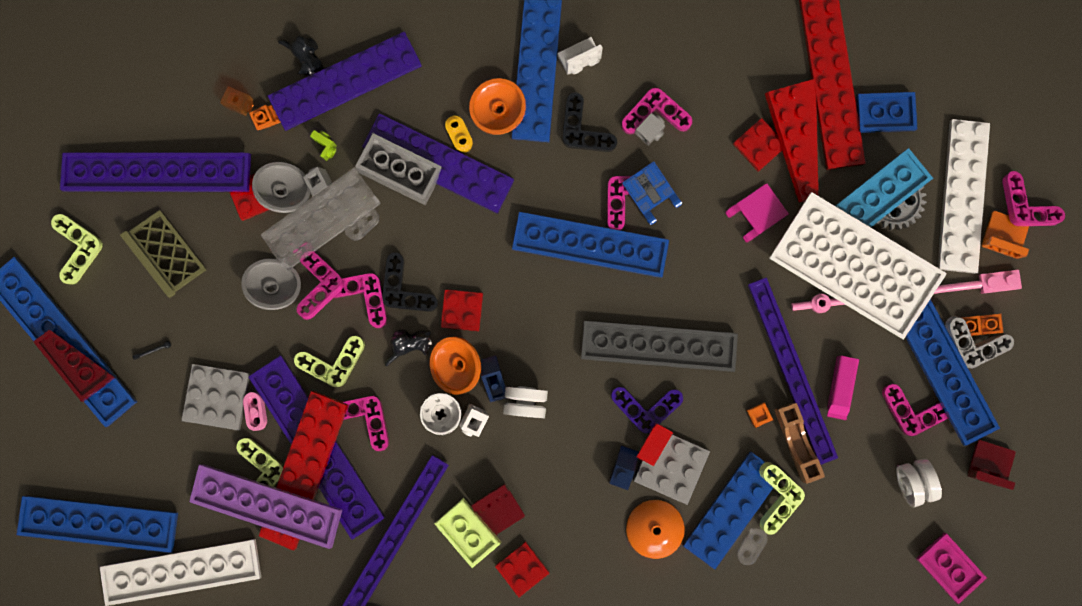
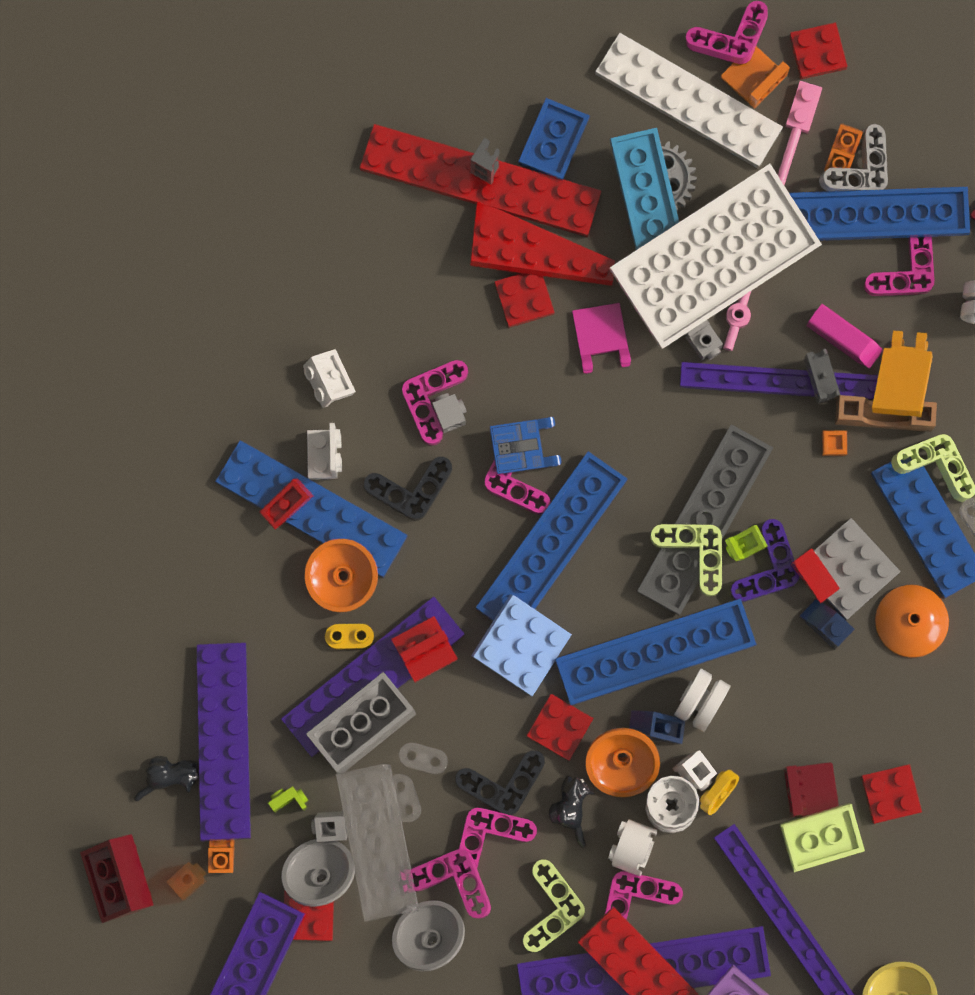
camera: 70 degrees left, 5 degrees down
(218, 53) = (116, 878): none -> dark red slope
(395, 225) = (423, 759): none -> clear plate
(397, 400) = (633, 847): none -> white brick
(460, 442) = (723, 786): none -> yellow plate
(471, 188) = (424, 649): none -> red bracket
(506, 255) = (521, 645): none -> light blue plate
(531, 45) = (286, 503): none -> red slope
(546, 354) = (655, 652): none -> blue plate
(636, 33) = (328, 378): none -> white bracket
(639, 347) = (697, 542): none -> yellowish green beam
(654, 383) = (745, 543): none -> lime bracket
(783, 291) = (703, 350): none -> light grey brick
(804, 383) = (821, 376): none -> dark grey hinge
(832, 443) = (903, 377): none -> light orange tile
(844, 64) = (483, 164): none -> dark grey hinge
(1048, 273) = (818, 50): none -> red plate

